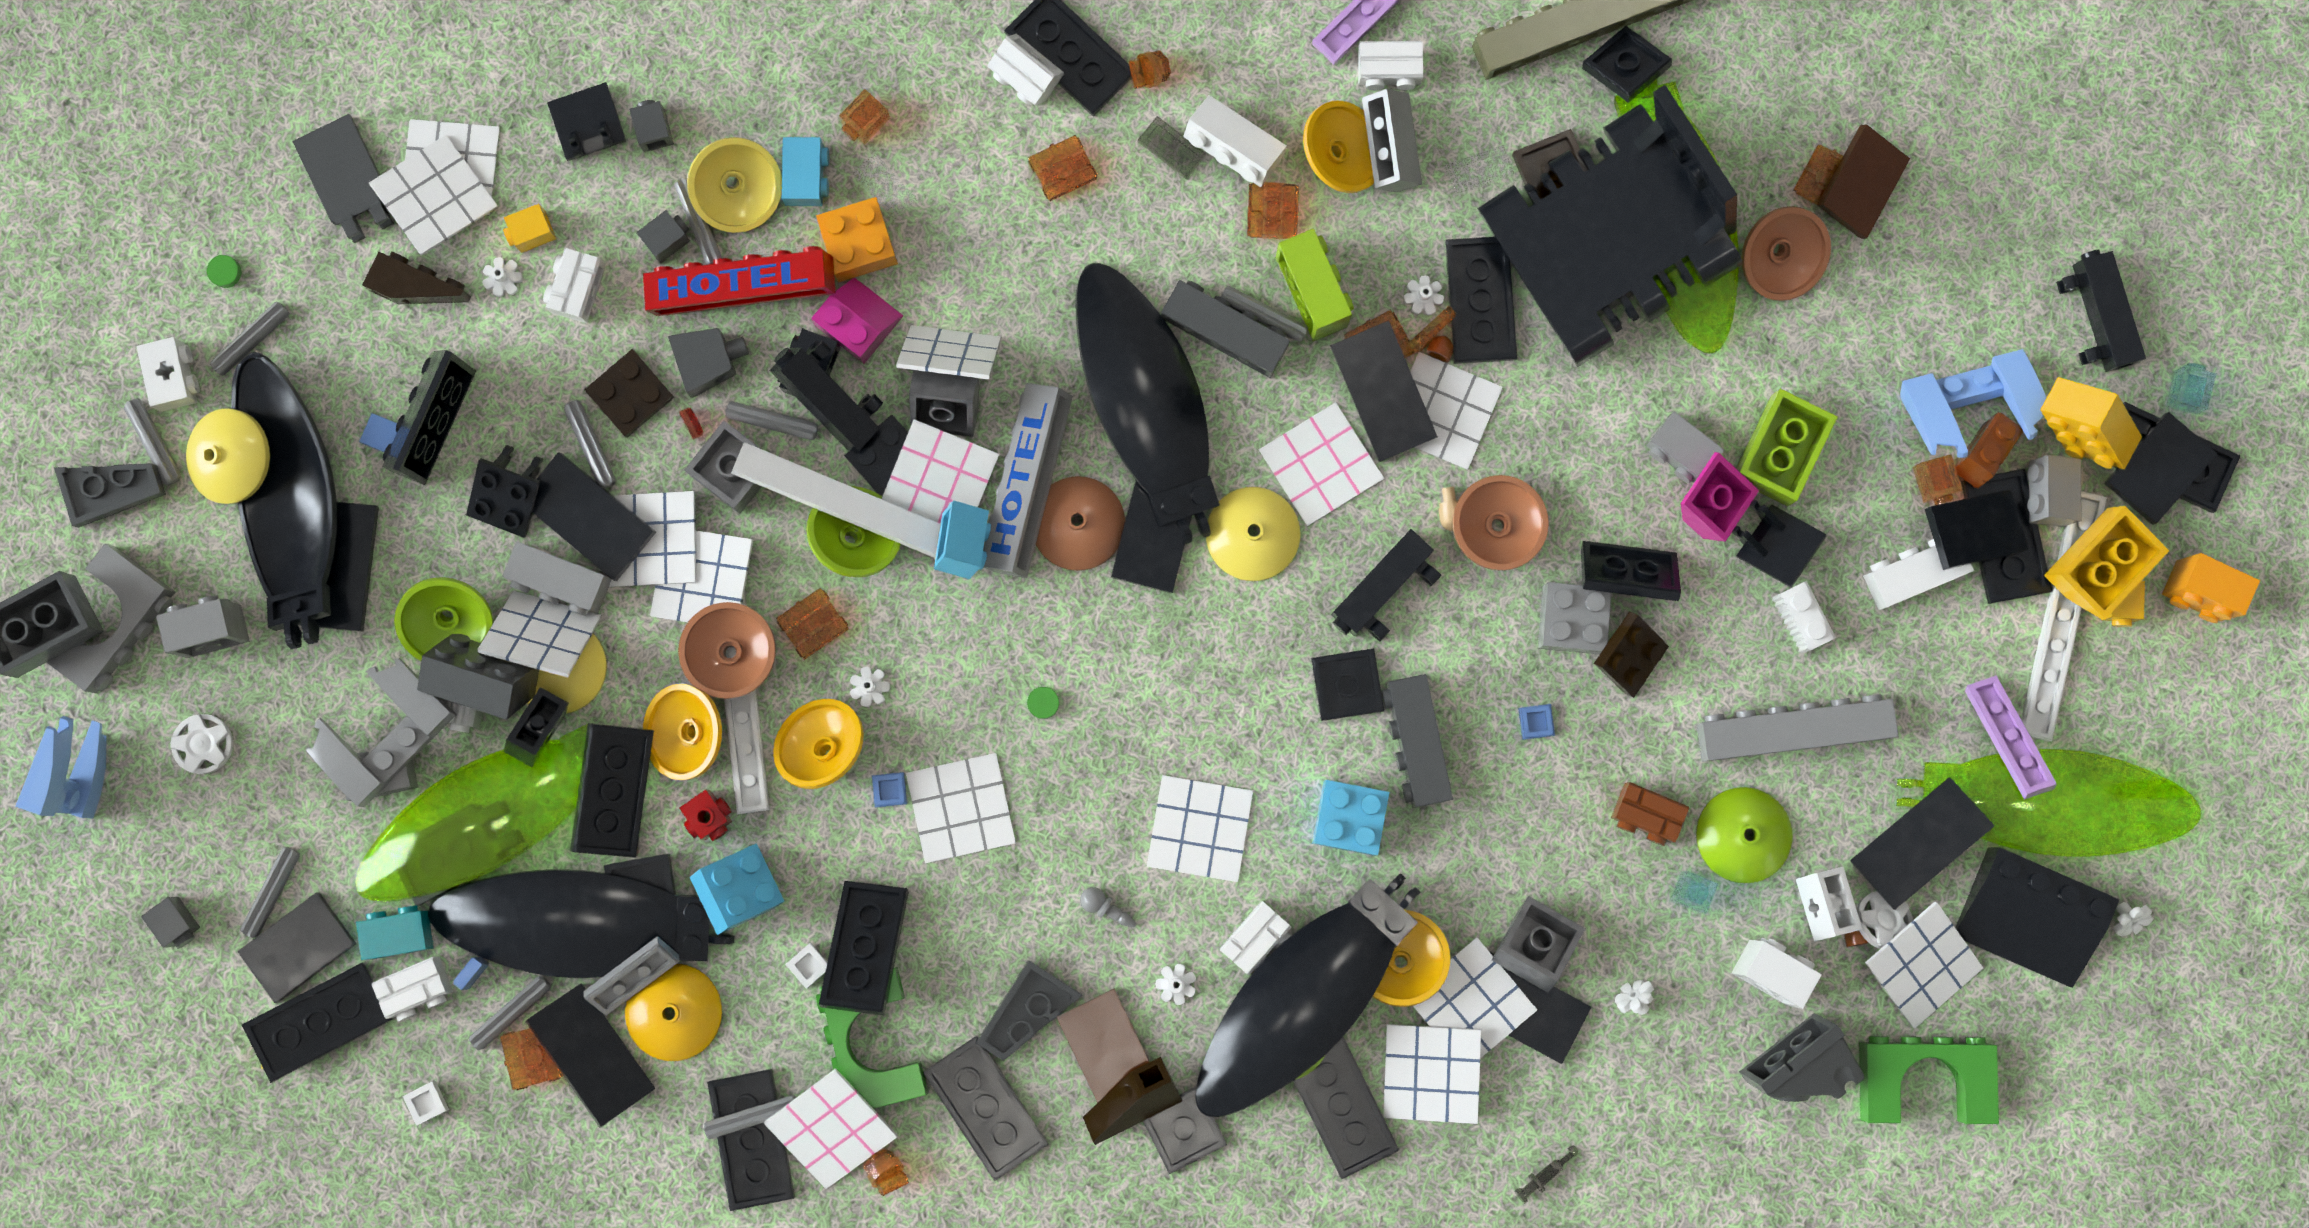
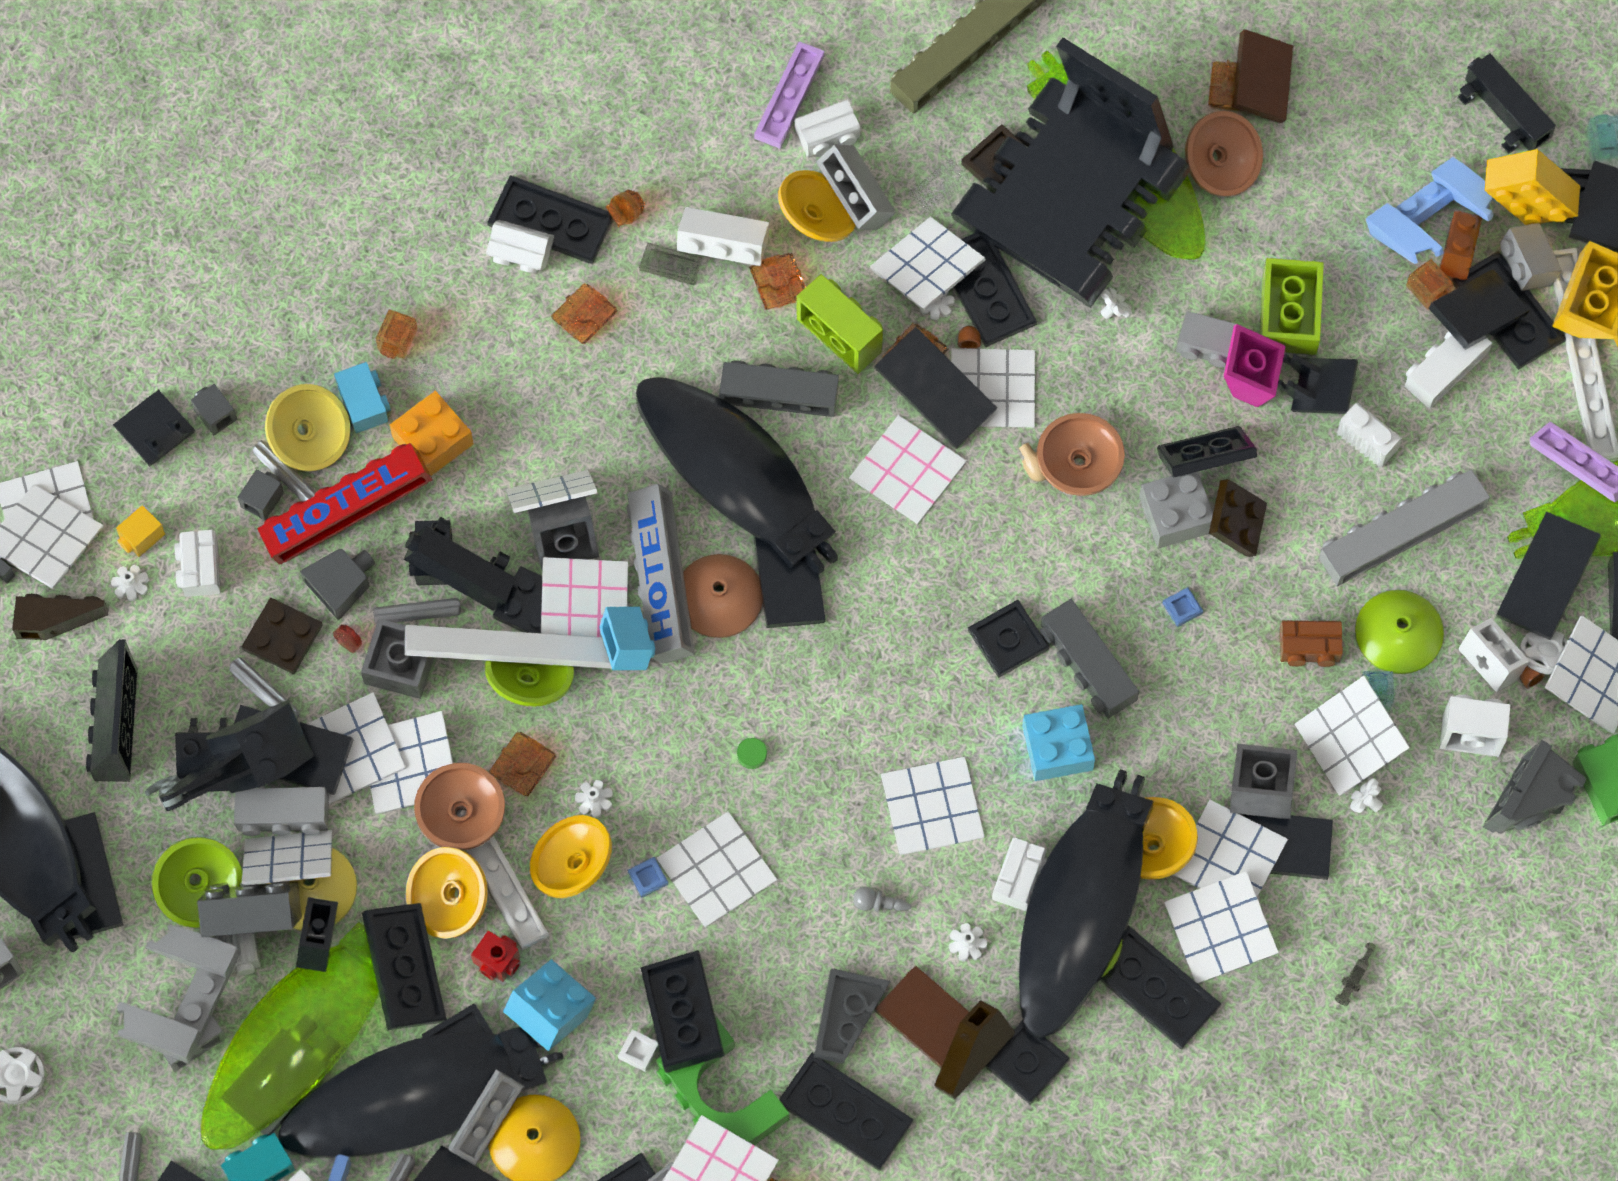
camera: 20 degrees left, 15 degrees down
(378, 433) = (73, 751): medium blue tile -> none
(541, 511) = (246, 754): none -> black slope
(856, 319) = (457, 499): dark pink slope -> none
(1250, 556) = (879, 563): light yellow dish -> none
(1265, 313) = (809, 364): light grey axle -> none
(1381, 583) = (1001, 543): black brick -> none
(1424, 338) = (951, 331): clear orange tile -> none
(1431, 252) = (927, 263): none -> white piece
(1604, 372) = (1115, 304): none -> white plant
(1627, 64) = (1025, 56): black tile -> none
(1648, 931) = (1352, 736): none -> white piece

